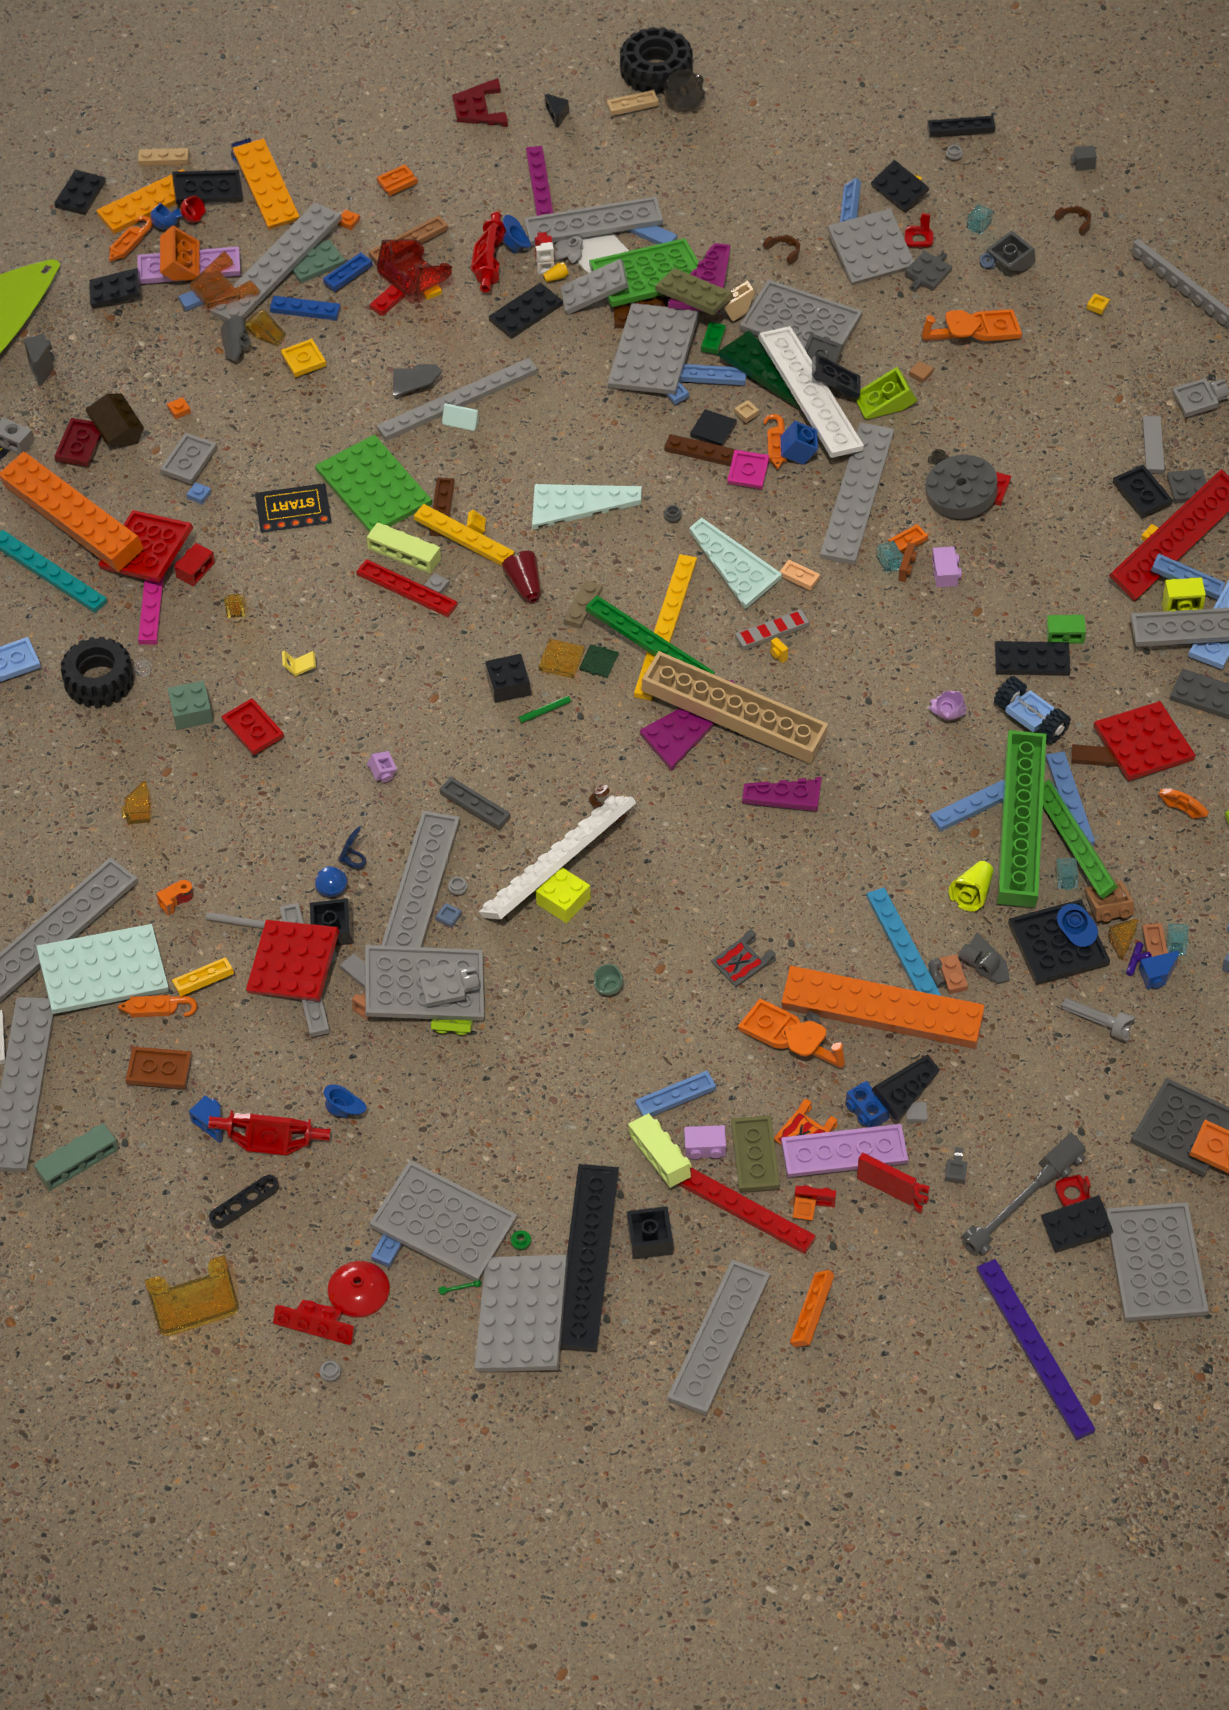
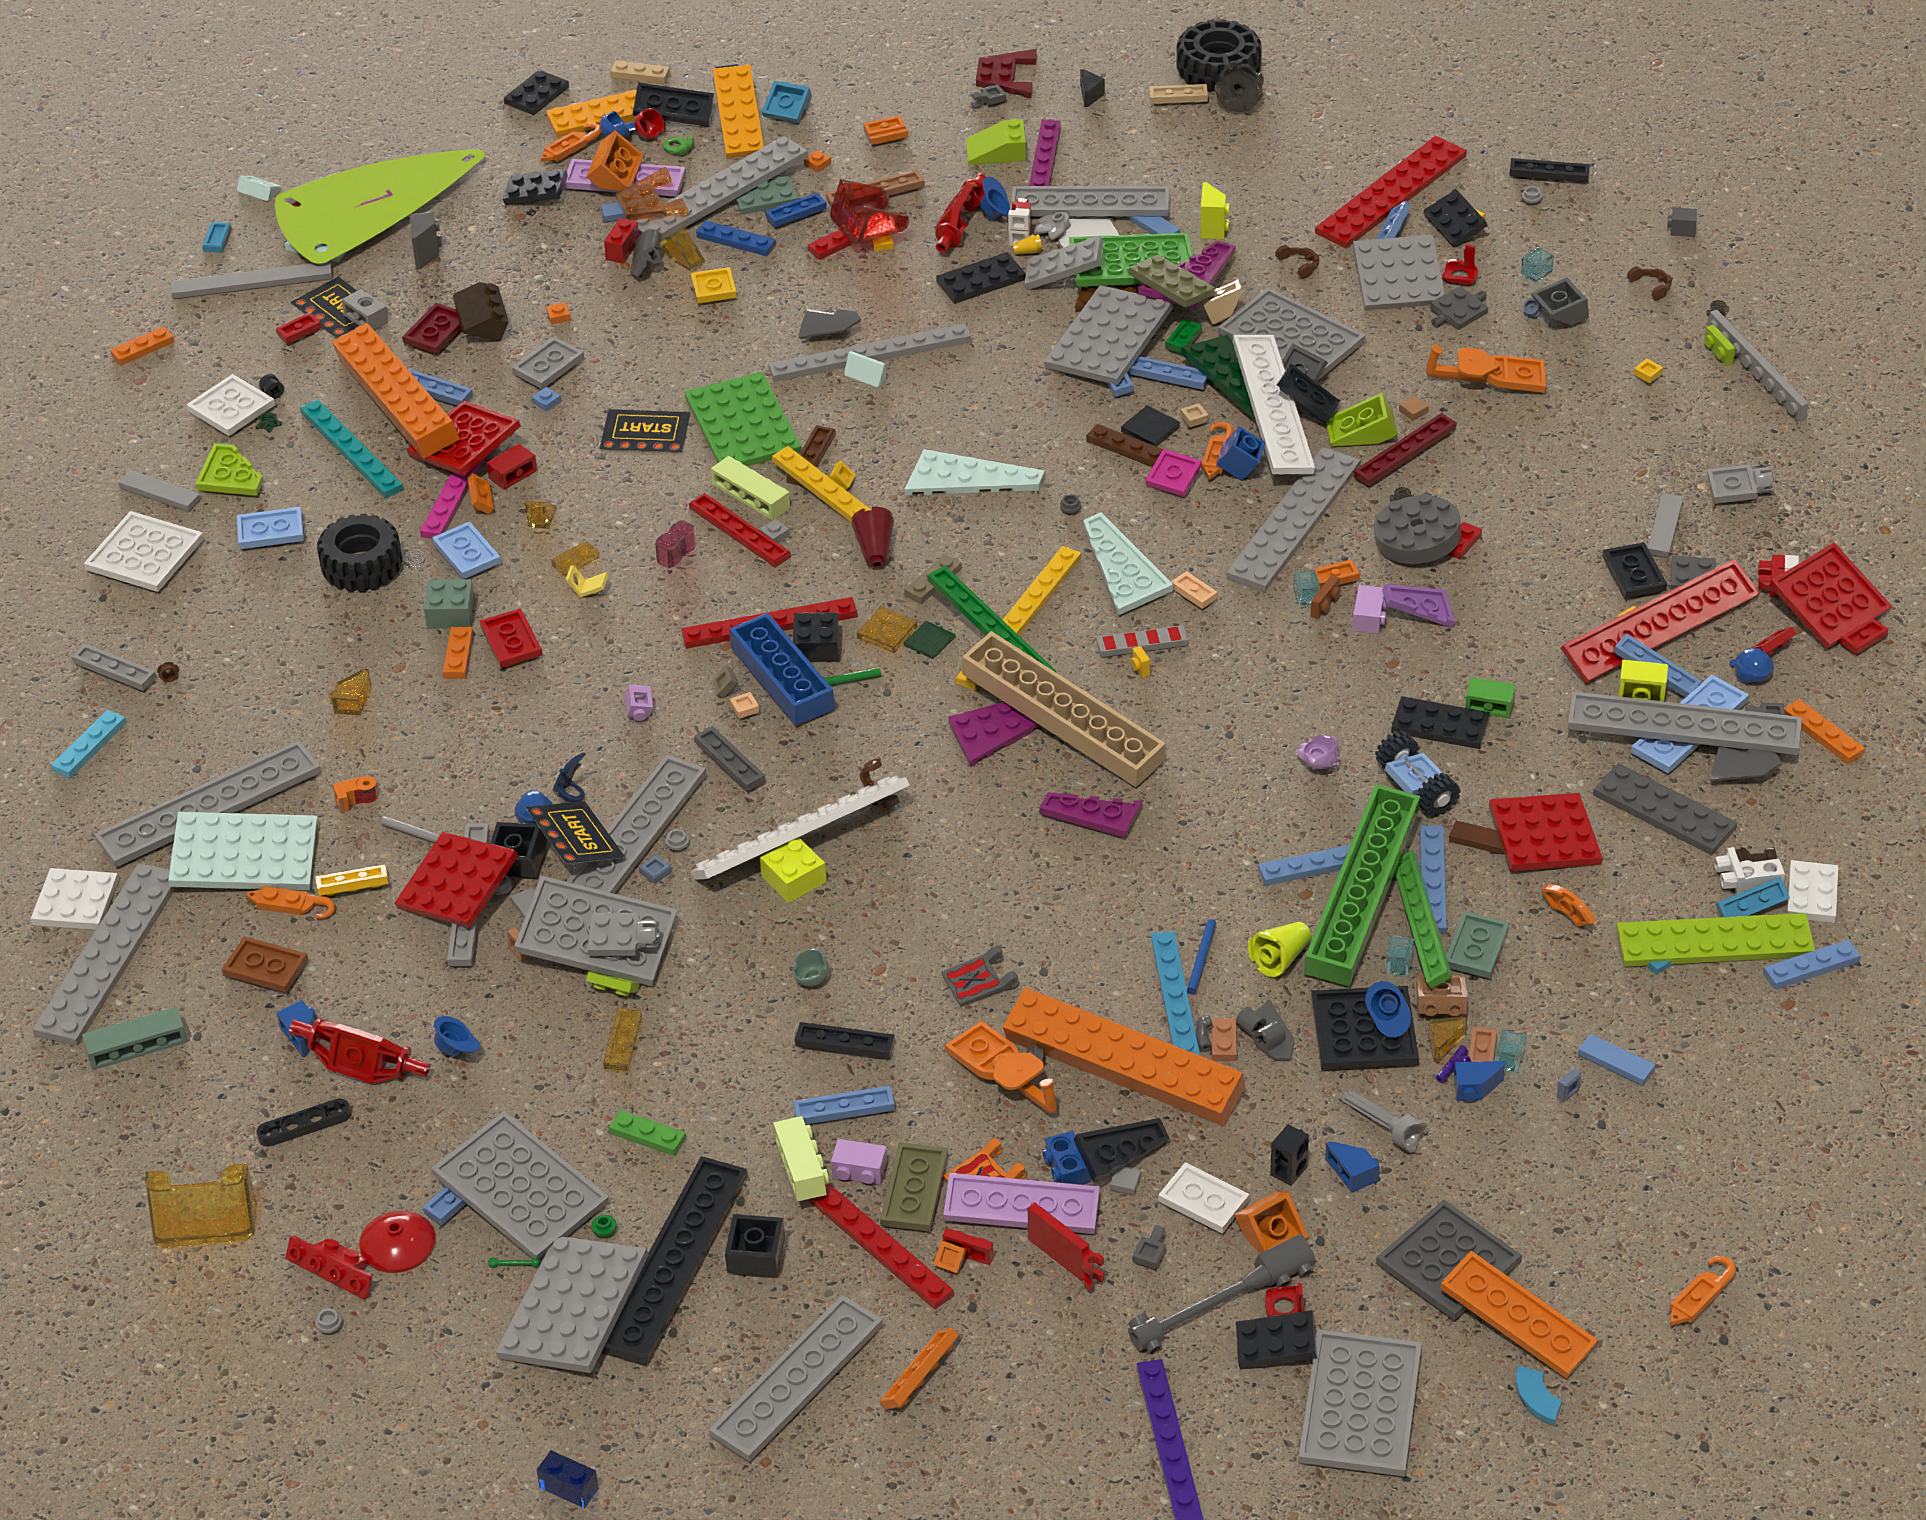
camera: 15 degrees right, 10 degrees down
(108, 501) = (443, 389): none -> medium blue plate
(177, 595) = (480, 494): none -> orange plate
(184, 651) = (466, 550): none -> light blue plate
(210, 328) = (621, 240): none -> red brick
(212, 748) = (458, 652): none -> orange plate
(230, 222) = (685, 145): none -> bright green piece
(278, 640) = (577, 556): none -> clear yellow plate
(303, 167) = (787, 101): none -> dark azure plate
(360, 613) = (675, 544): none -> clear pink brick
(376, 898) = (575, 832): none -> black sticker
(446, 733) = (724, 681): none -> dark tan plate
(459, 671) = (719, 631): none -> red plate
(469, 751) = (744, 705): none -> light nougat plate
(473, 130) = (991, 95): none -> dark grey plate
(477, 1074) = (622, 1039): none -> clear yellow plate
(490, 713) = (782, 669): none -> blue brick
(497, 177) = (998, 143): none -> lime slope
(526, 1151) = (647, 1132): none -> bright green plate
(572, 1463) = (567, 1479): none -> clear blue brick
(656, 1037) = (844, 1040): none -> black plate
(702, 216) = (1213, 213): none -> neon yellow slope
(837, 168) = (1390, 190): none -> red plate
(911, 904) = (1201, 956): none -> blue bar
(927, 413) = (1405, 449): none -> dark red plate
(982, 1115) = (1203, 1197): none -> white plate
(985, 553) = (1421, 602): none -> medium lavender wing
(1039, 1066) = (1289, 1154): none -> black brick
(1042, 1126) = (1270, 1221): none -> orange slope
(1087, 1063) = (1352, 1165): none -> blue slope
(1123, 850) = (1477, 944): none -> sand green plate
(1134, 234) = (1718, 305): none -> clear smoke plate
(1147, 270) = (1719, 345): none -> lime plate

